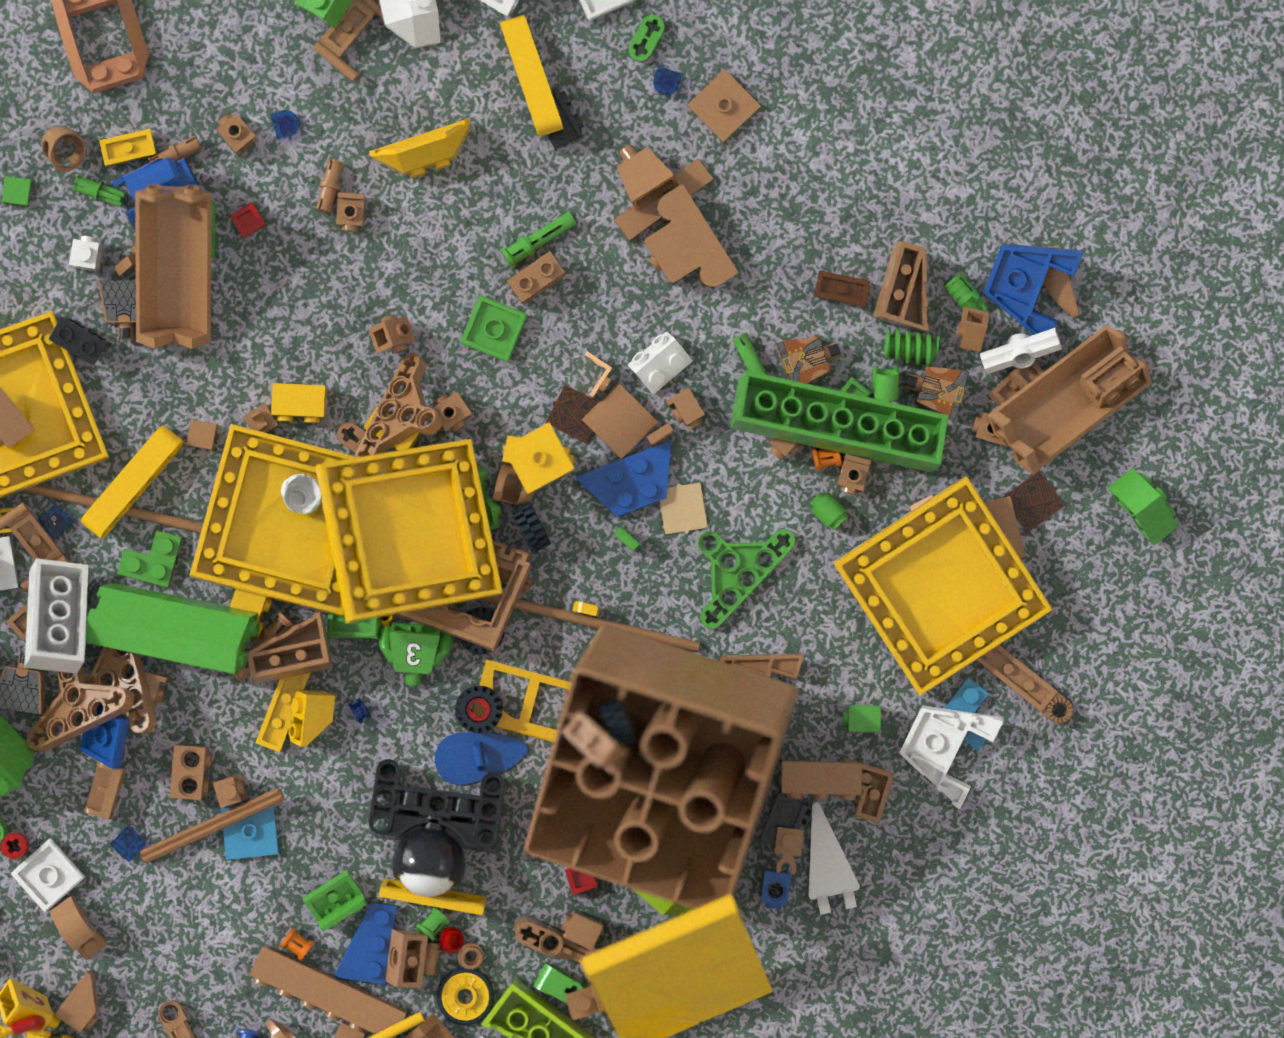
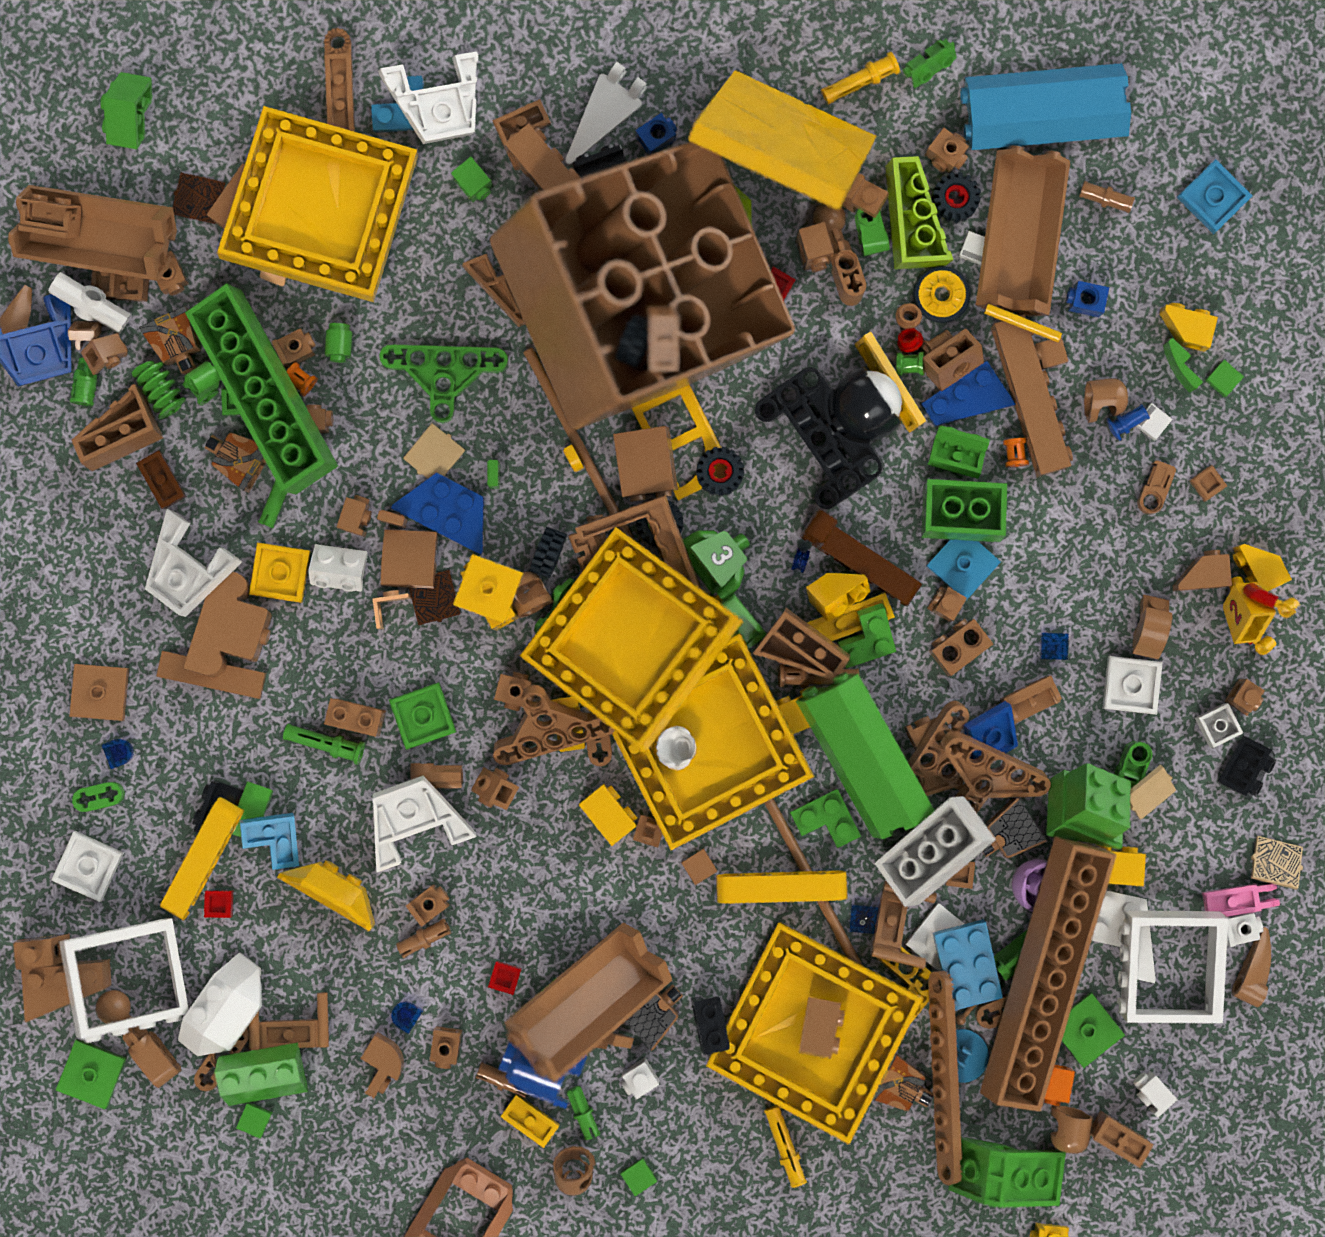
camera: 135 degrees left, 0 degrees up
(6, 846) = (1136, 736): red bush -> none
(212, 825) = (985, 594): medium nougat axle -> none
(251, 710) = (874, 641): none -> bright green plate
(265, 83) = (385, 1057): none -> medium nougat brick
(287, 864) = (964, 510): none -> bright green brick
(320, 755) = (854, 555): none -> reddish brown beam
(430, 258) = (410, 810): none -> white wing
(443, 296) = (439, 775): none -> medium nougat piece
(470, 756) = (761, 446): blue shield -> none
(488, 58) = (218, 904): none -> red plate
(500, 146) = (275, 831): none -> dark azure plate
(533, 659) = (645, 463): none -> medium nougat brick
(538, 148) = (253, 802): none -> bright green slope
(644, 176) = (204, 704): medium nougat torso -> none
(694, 316) = (279, 572): none -> yellow plate
(756, 238) = (177, 576): none -> white wing
(788, 844) = (615, 149): medium nougat plate -> none
(1003, 328) = (84, 331): none -> medium nougat tile

